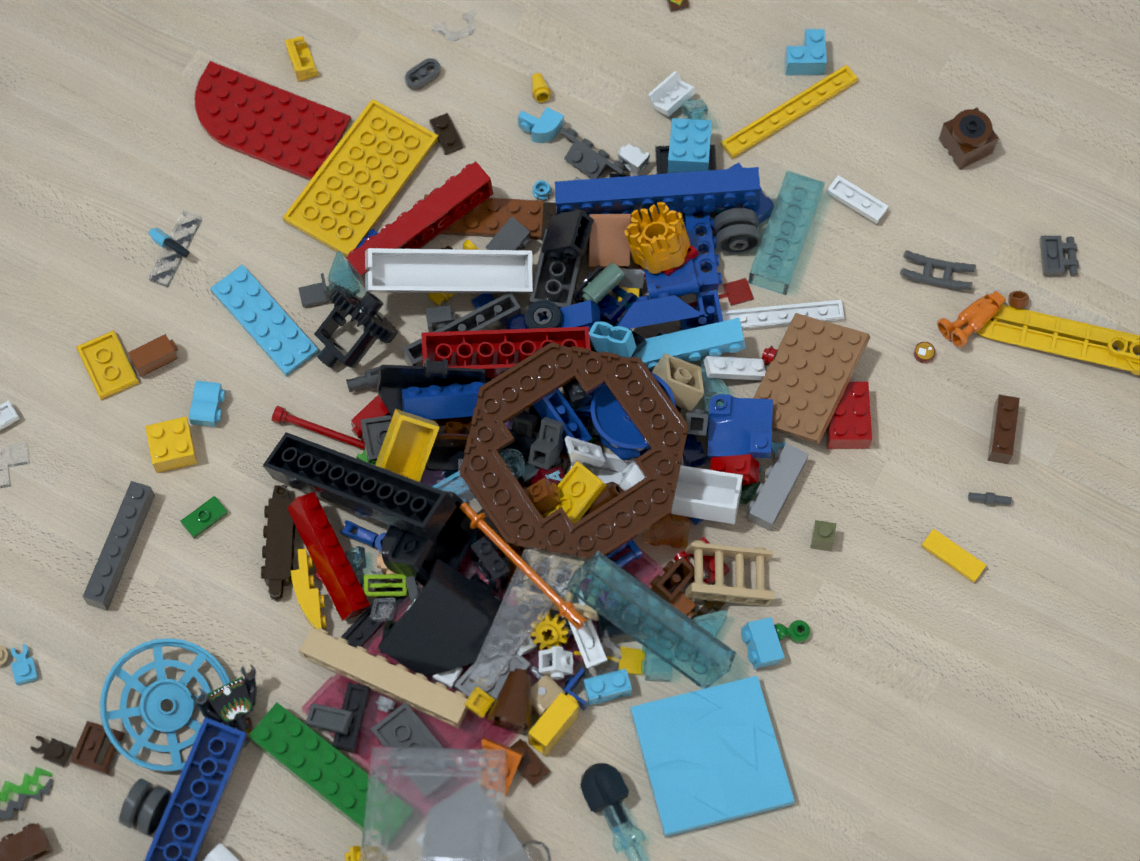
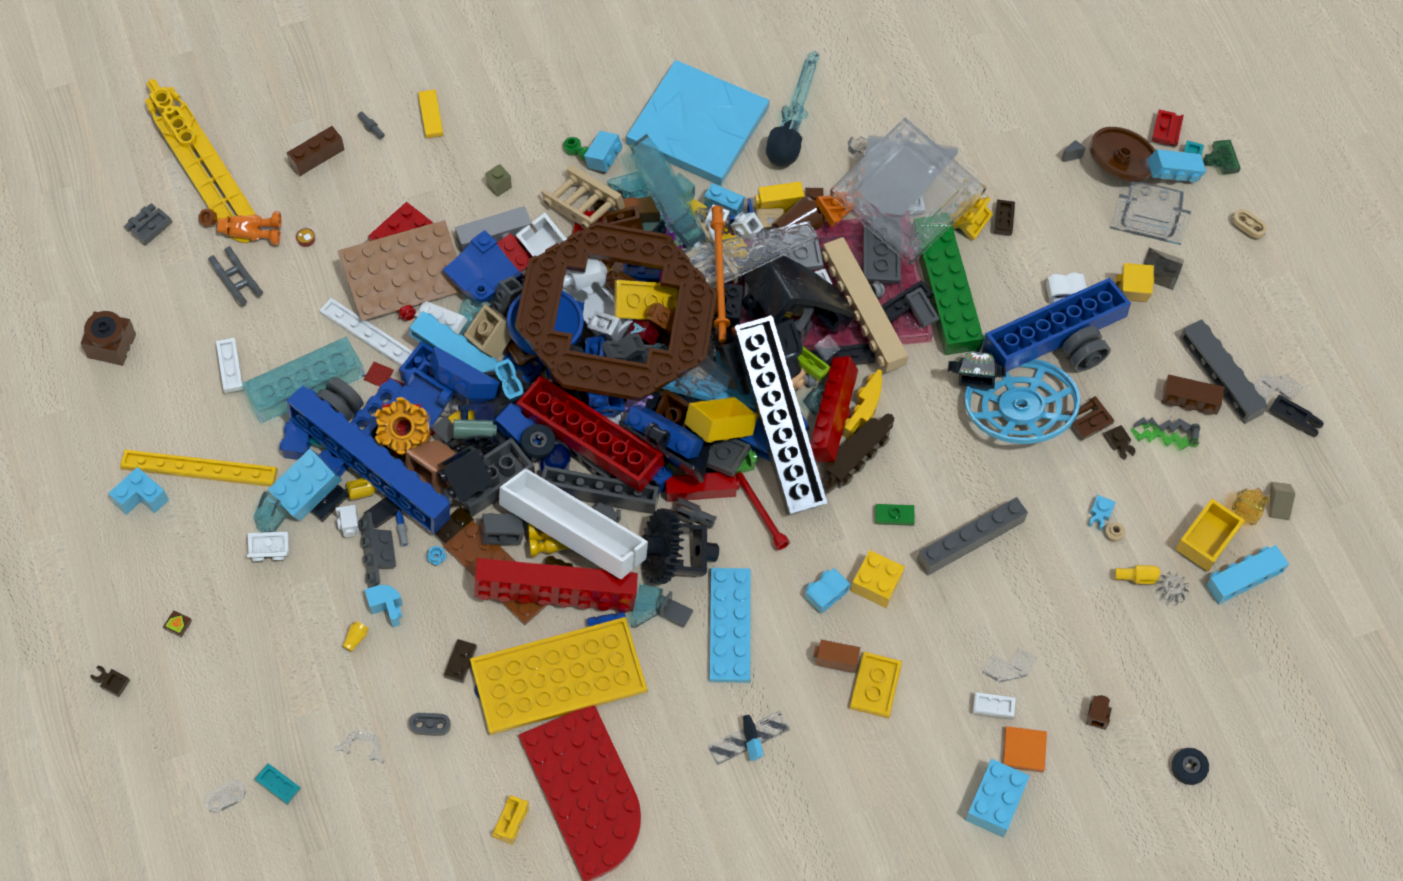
camera: 140 degrees left, 5 degrees down
(479, 702) = (823, 238): yellow tile -> none

